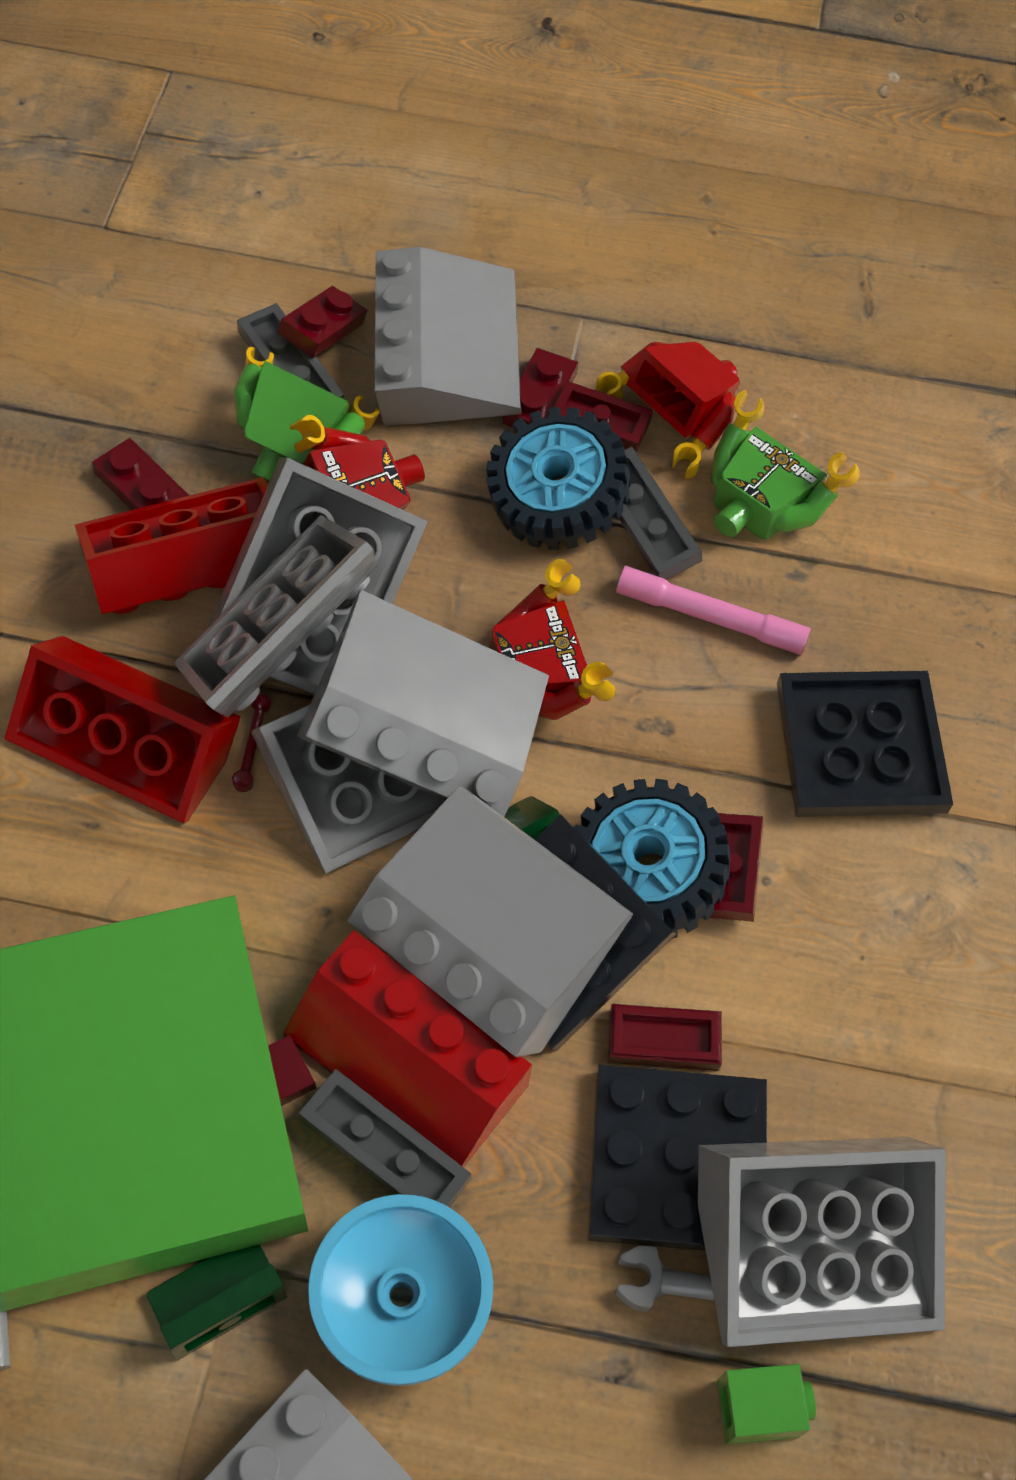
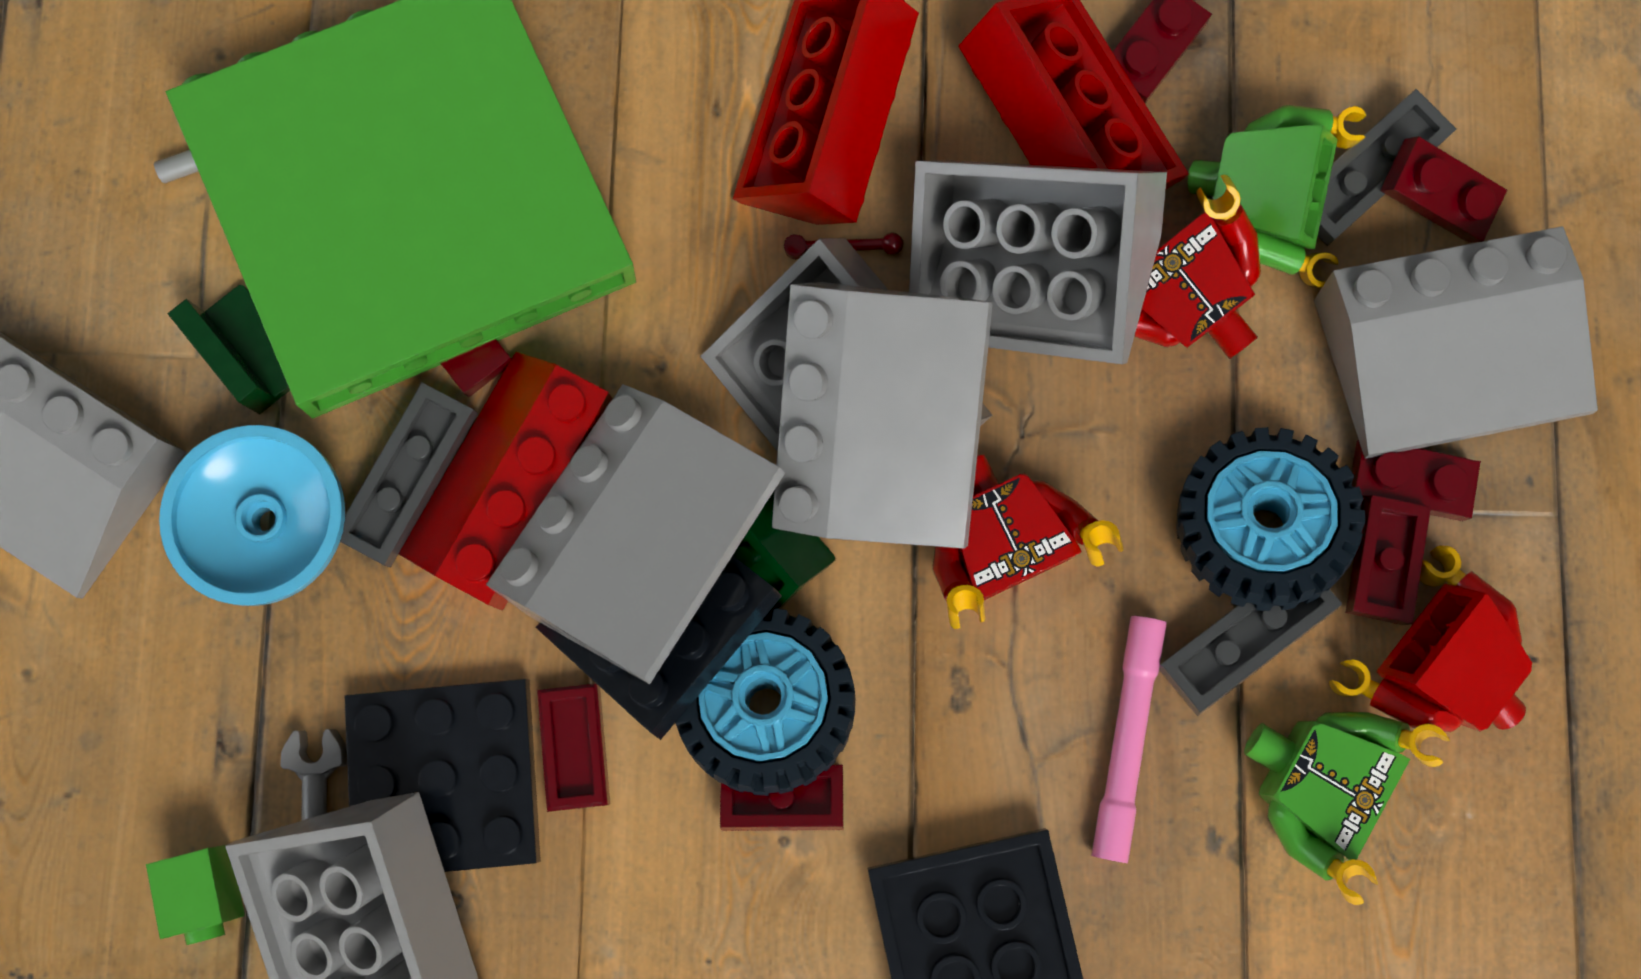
camera: 85 degrees right, 20 degrees up
(277, 615) = (942, 216): light grey slope -> none

